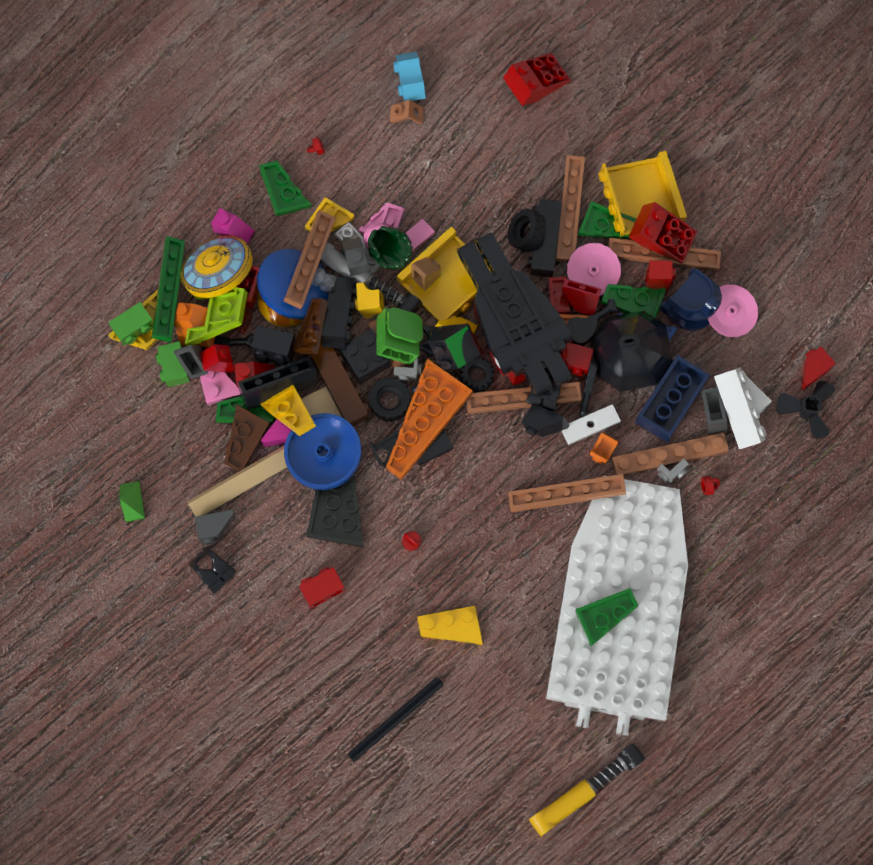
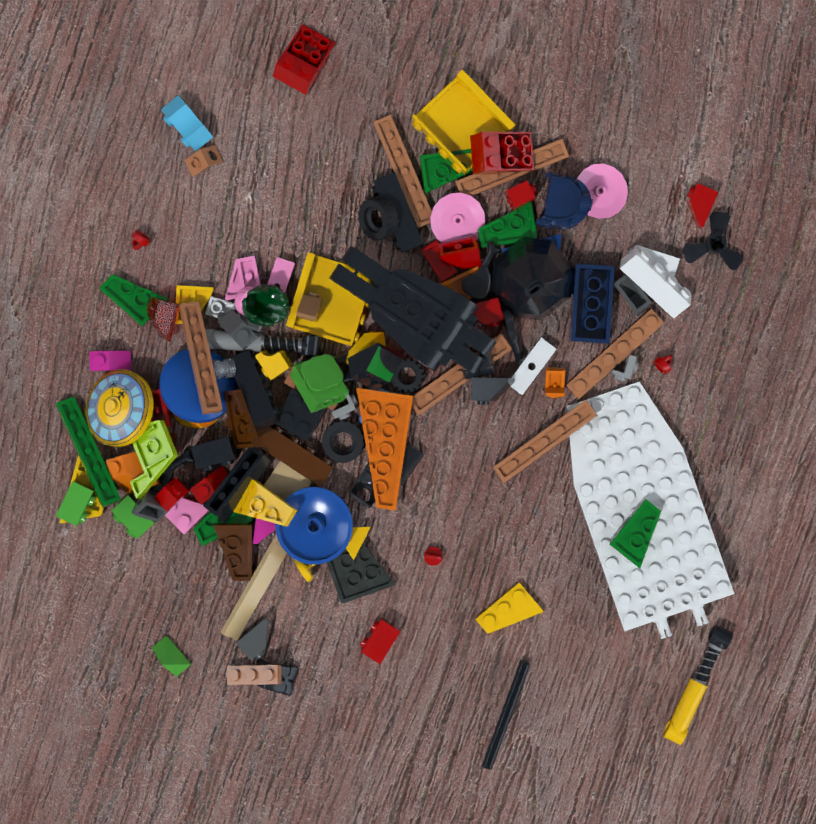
camera: 30 degrees left, 15 degrees up
(193, 554) = (253, 674): none -> nougat plate
(298, 213) = (163, 316): none -> clear red slope
(346, 490) = (353, 547): none -> yellow piece

